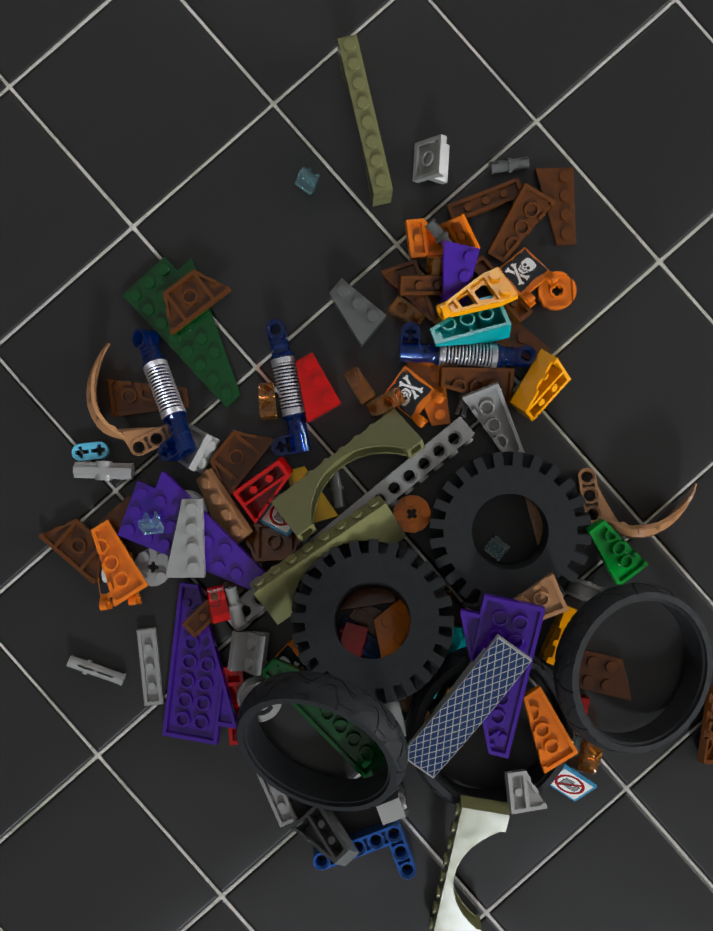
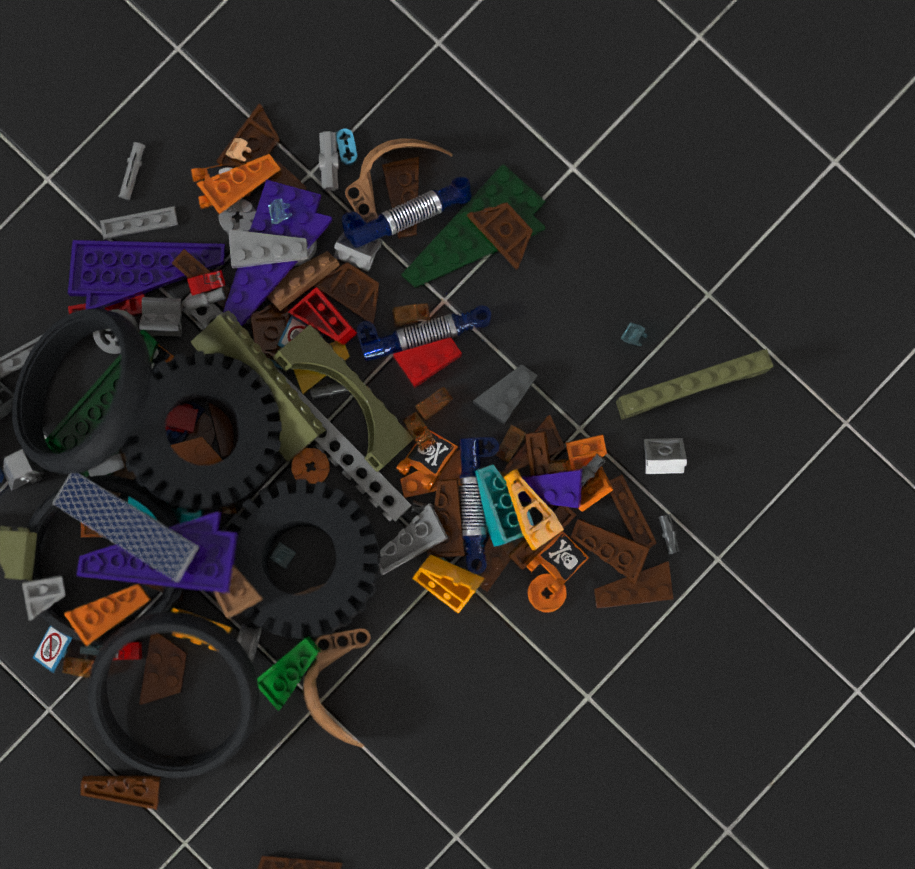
camera: 90 degrees right, 5 degrees down
(82, 562) = (236, 149): none -> light nougat tile

